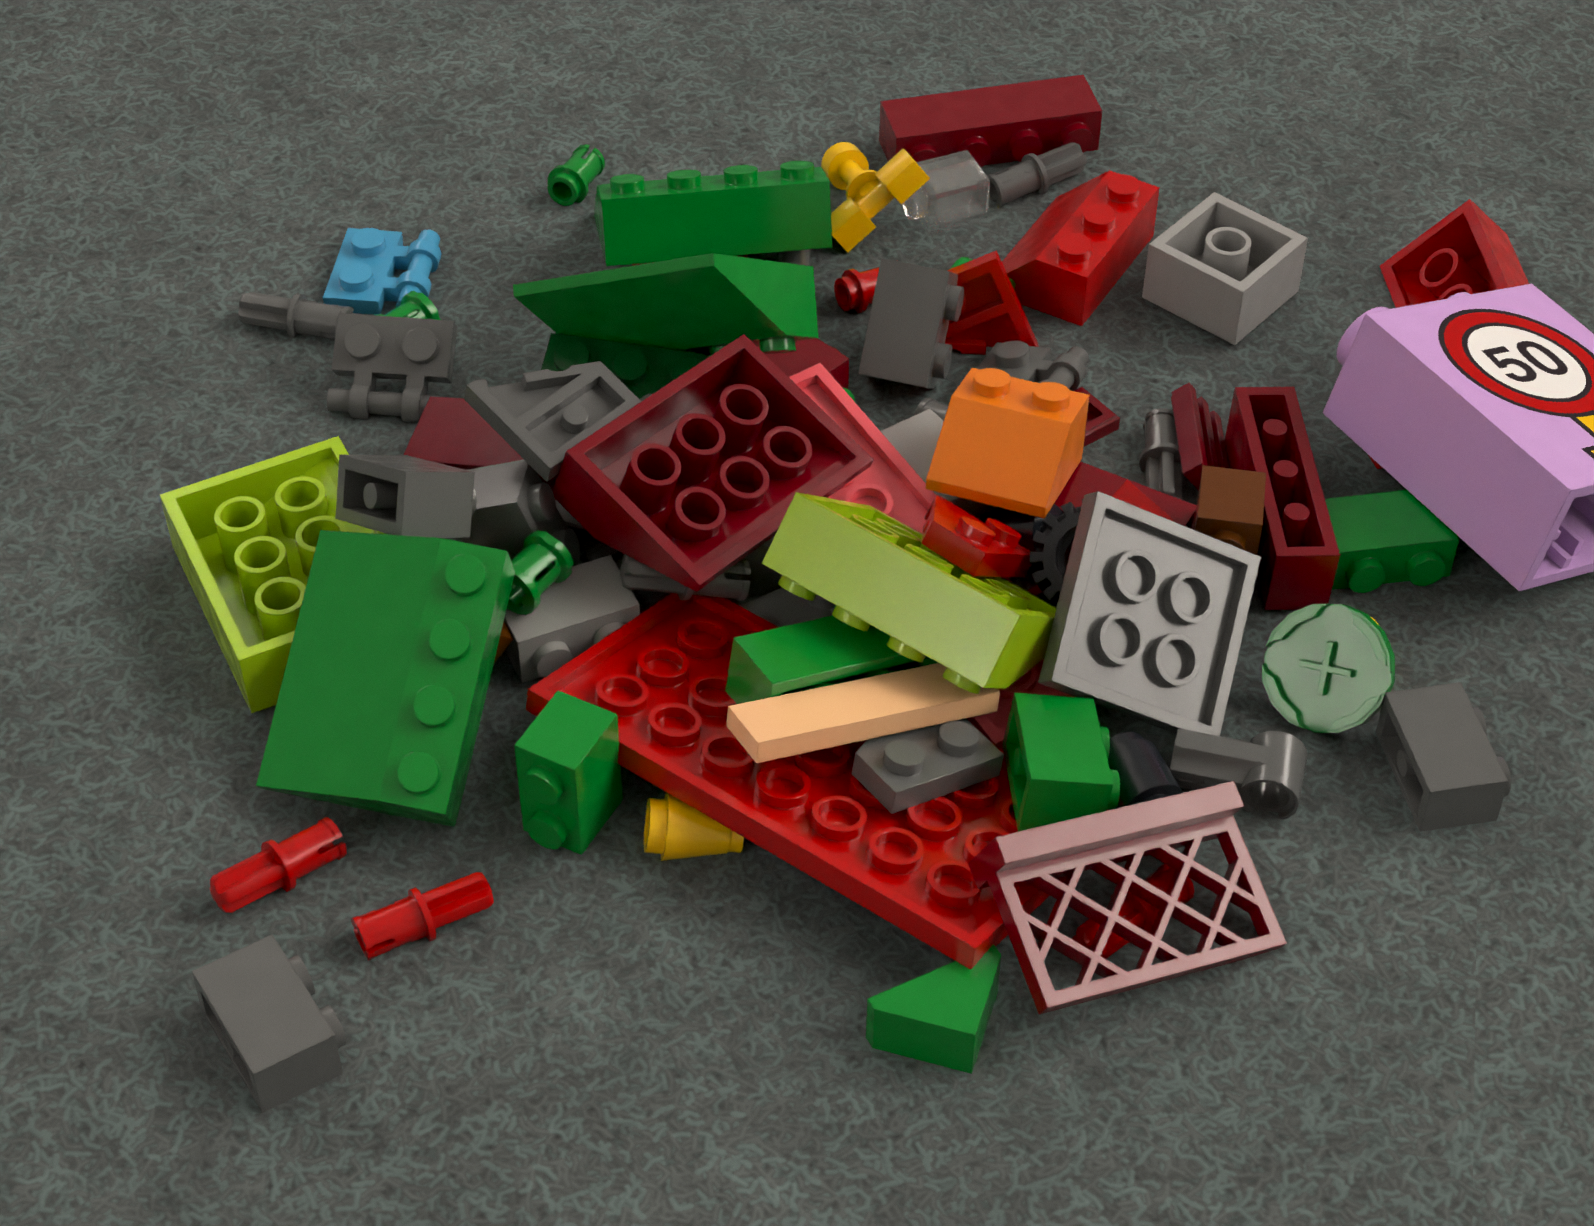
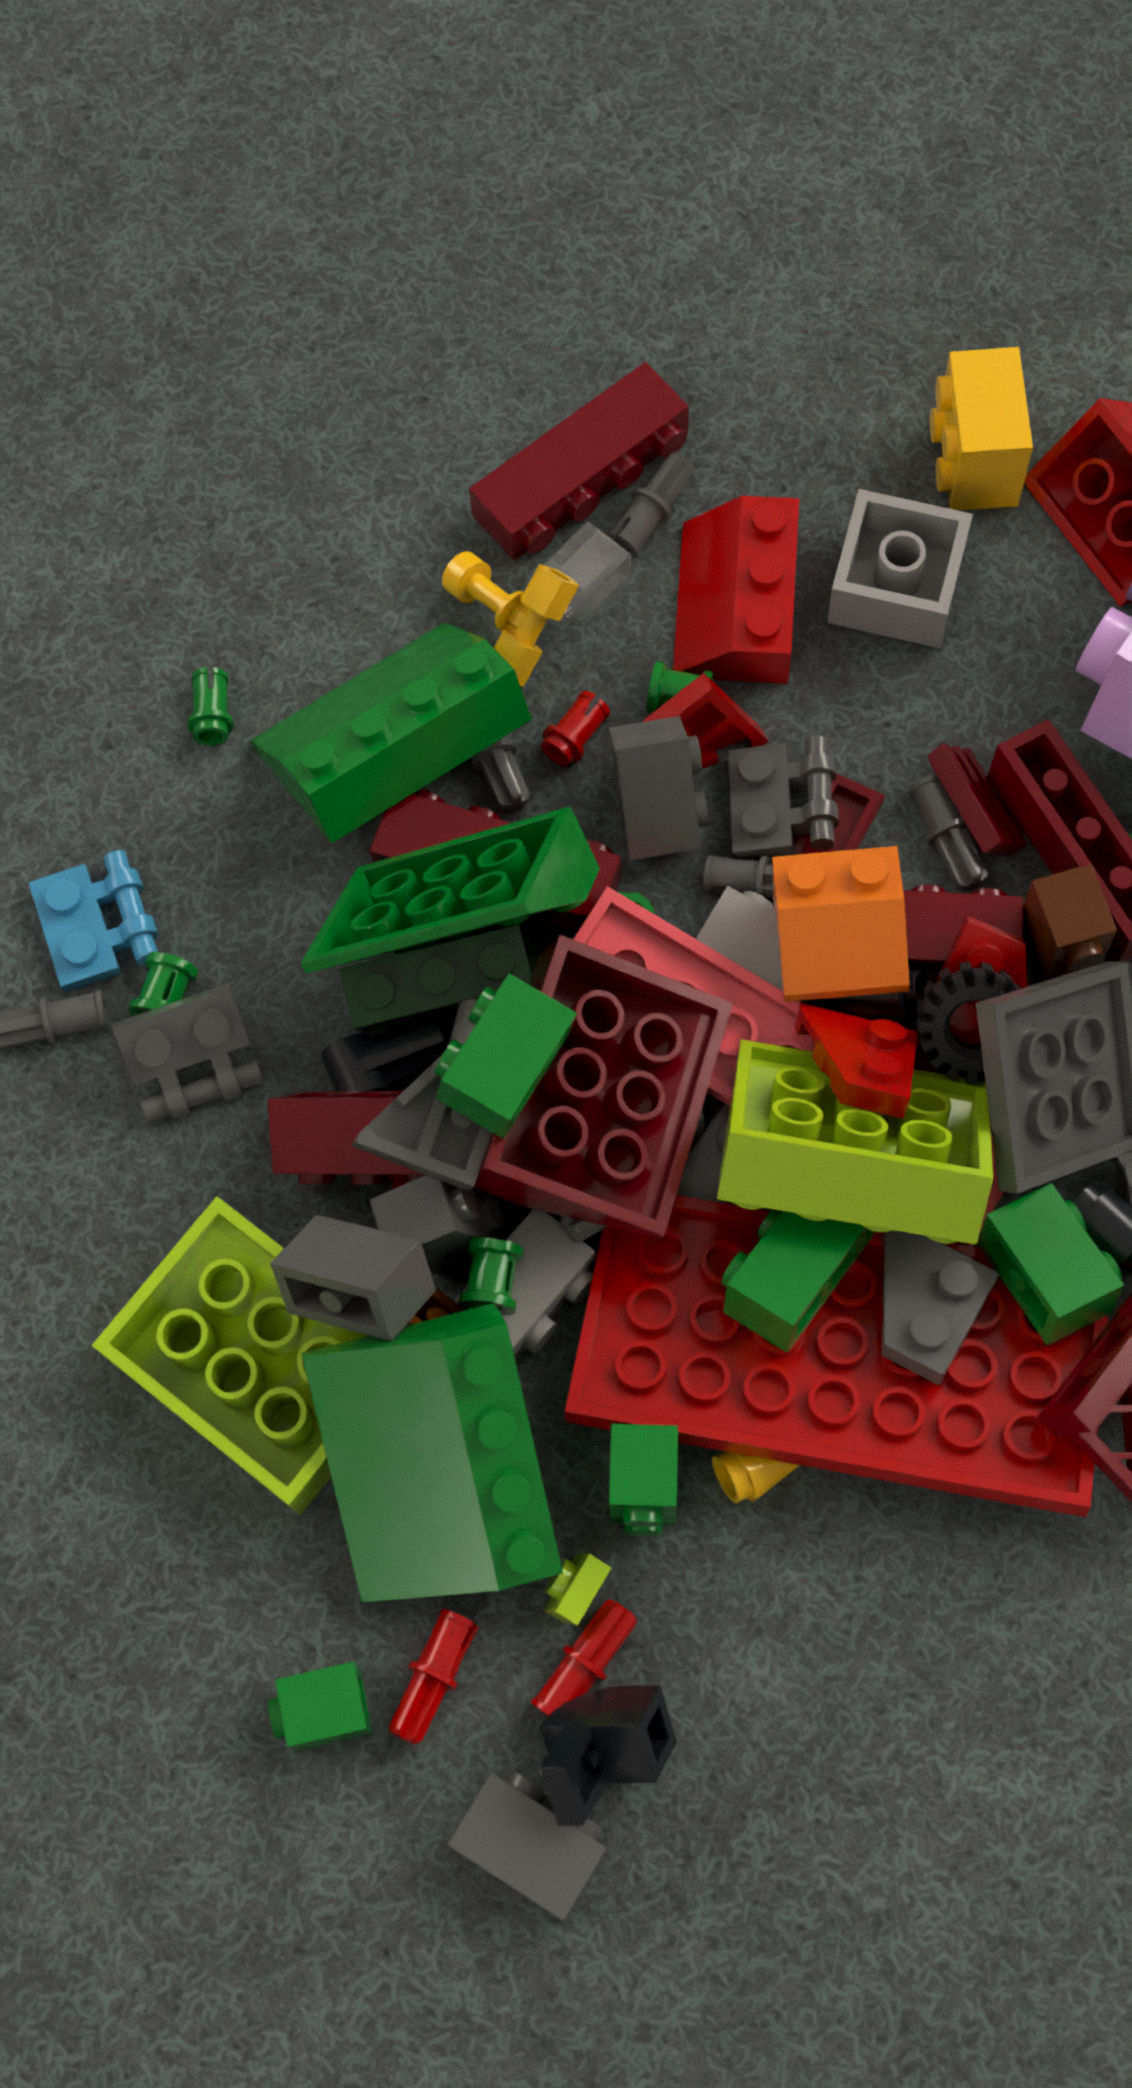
camera: 20 degrees left, 25 degrees up
(163, 842) = (320, 1707): none -> green brick
(388, 962) = (600, 1740): none -> black brick
(452, 846) = (575, 1587): none -> lime plate
(634, 371) = (504, 1054): none -> green brick
(853, 712) = (853, 1314): light nougat tile -> none
(937, 1014) = (1075, 1559): green slope -> none
(1353, 199) = (982, 429): none -> yellow brick

